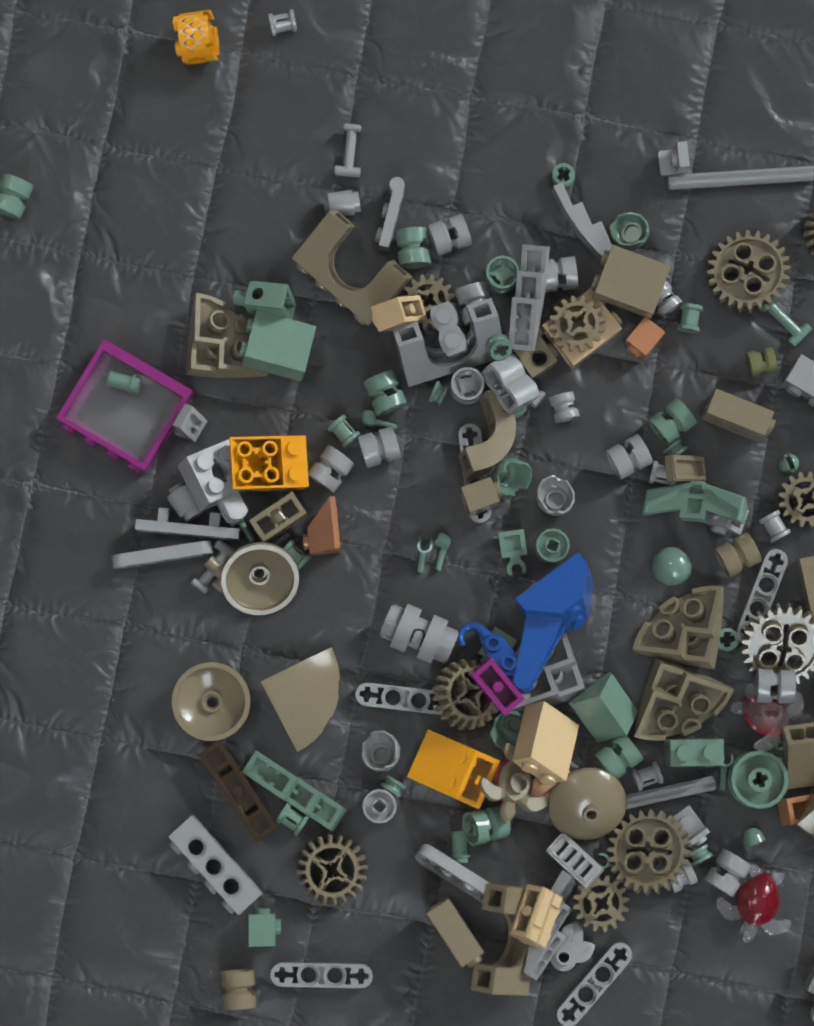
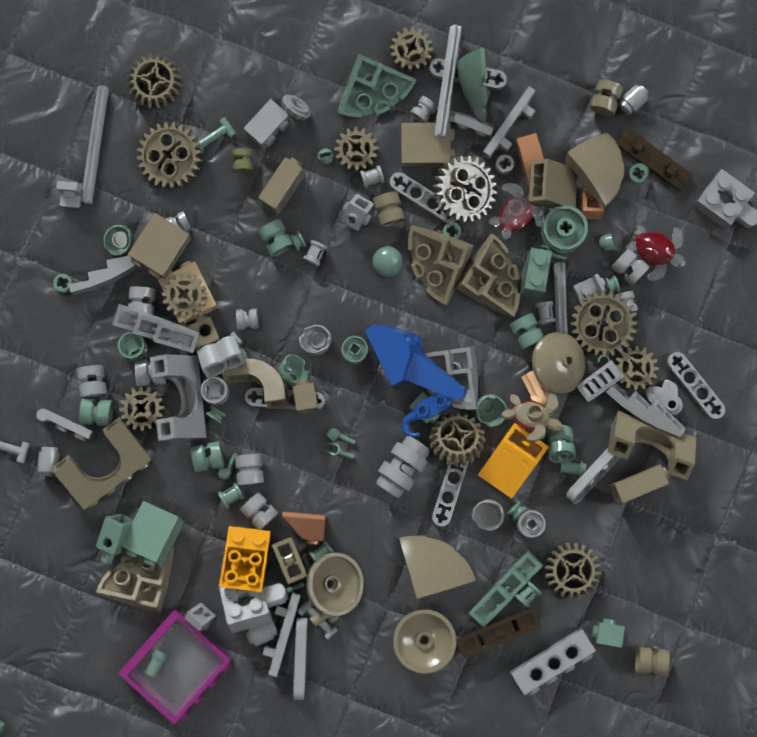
camera: 80 degrees left, 0 degrees up
(321, 979) = (647, 593): light grey beam -> none
(398, 312) = (146, 433): tan brick -> none
(450, 335) = (174, 395): light grey brick -> none
(496, 340) = (195, 356): sand green bush -> none
(496, 686) = (456, 414): magenta brick -> none
(513, 546) = (347, 380): sand green plate -> none
(536, 916) = (639, 418): tan brick -> none
(545, 743) = (507, 385): tan brick -> none
(605, 709) = (488, 334): sand green slope -> none
(629, 456) = (296, 276): light grey wheel -> none
(643, 338) = (206, 246): nougat brick -> none
(685, 468) = (314, 235): dark tan tile -> none
(689, 318) = (197, 208): sand green bush -> none
(695, 502) = (342, 233): sand green plate -> none
(784, 686) = (496, 201): light grey wheel -> none

